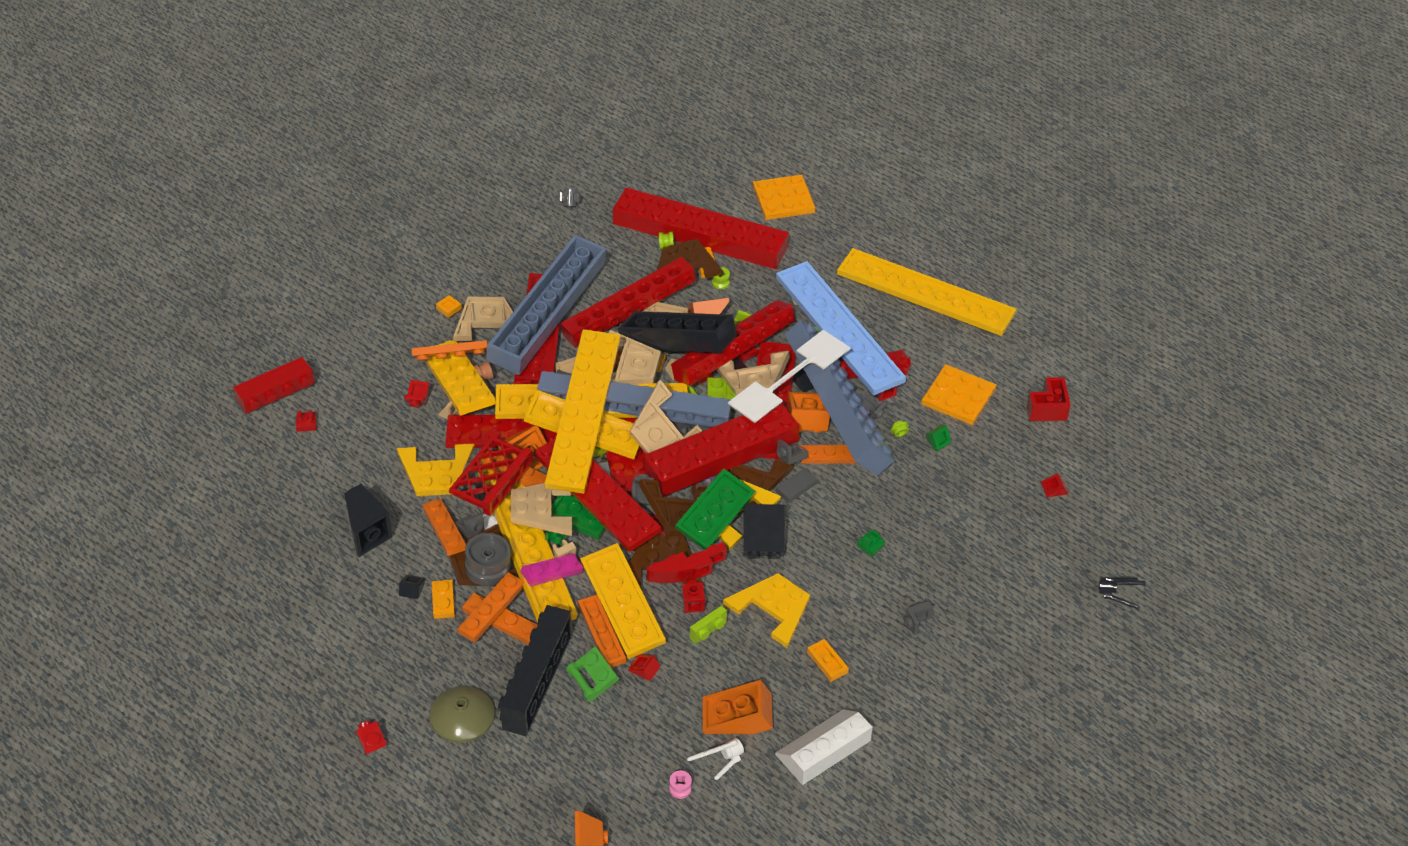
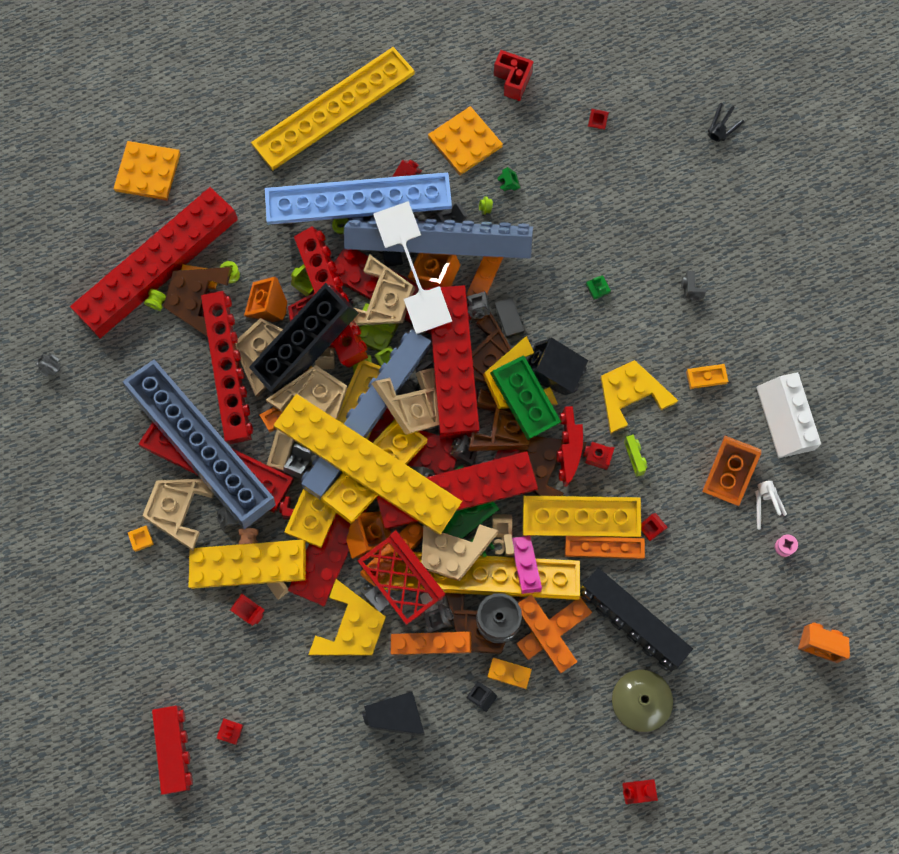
camera: 65 degrees left, 25 degrees up
(442, 351) = (218, 554): orange plate -> none
(585, 546) = (502, 523): none -> tan slope
(598, 669) = (648, 566): bright green plate -> none

